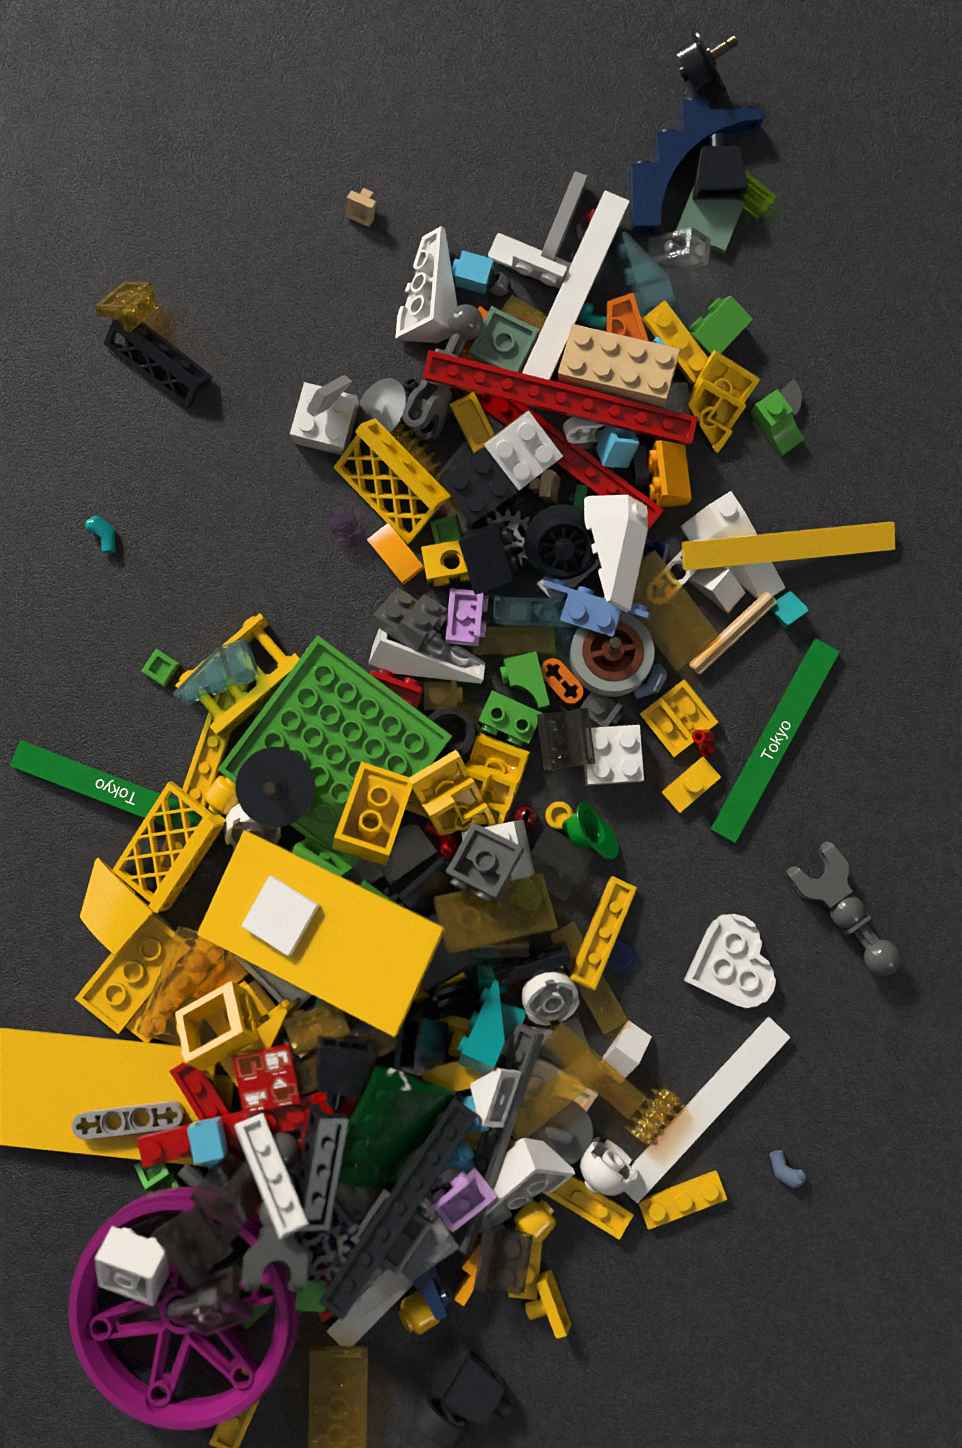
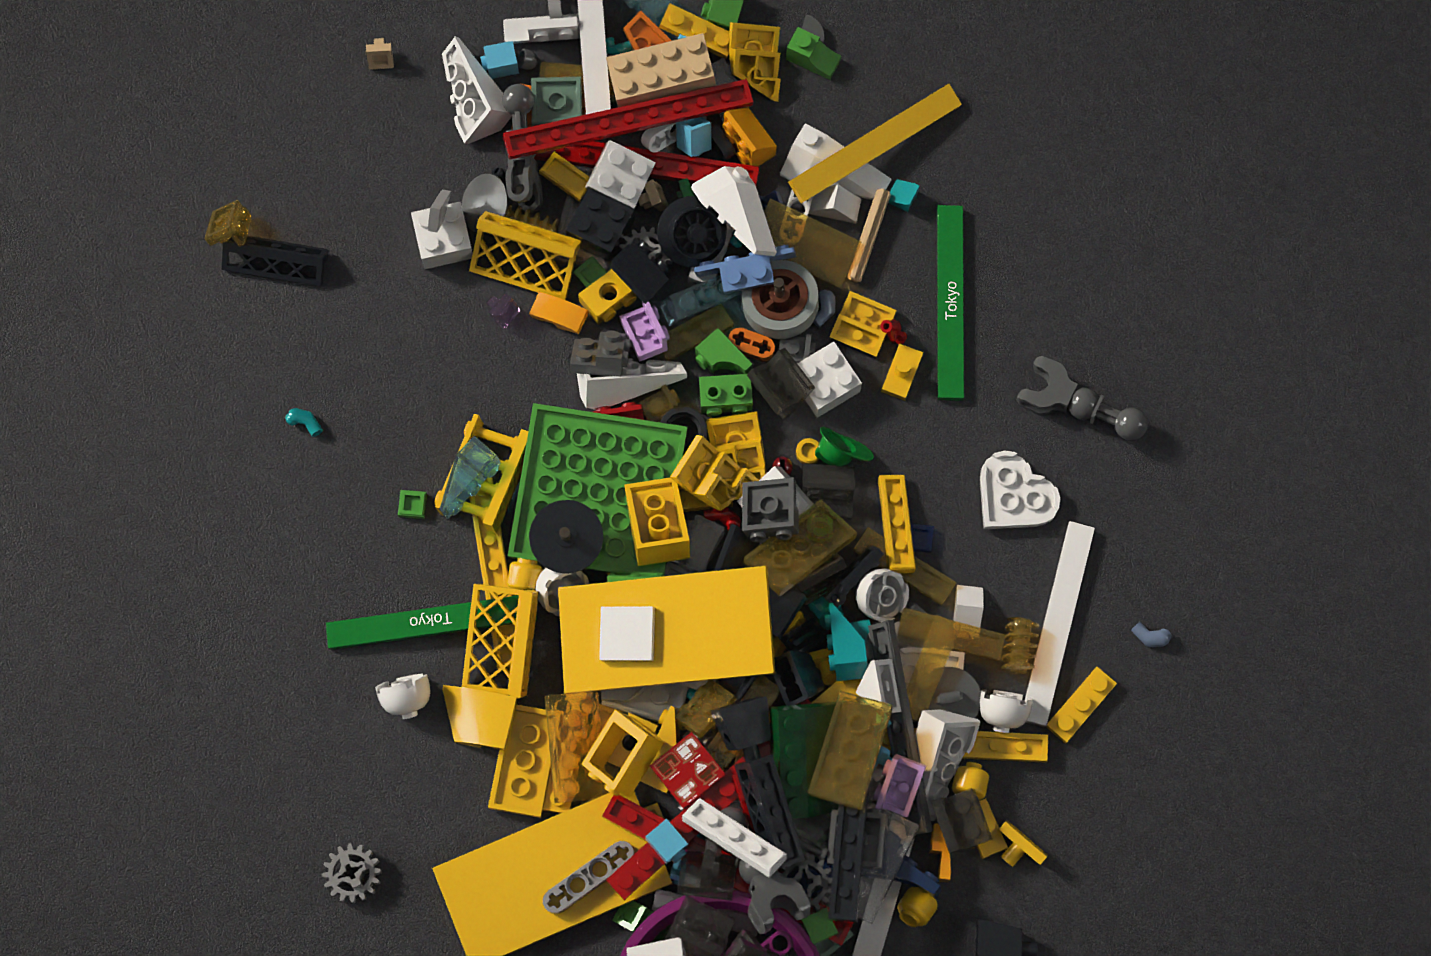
camera: 25 degrees left, 10 degrees down
(52, 850) = (404, 695): none -> white cylinder
(428, 1150) = (850, 750): none -> clear yellow plate

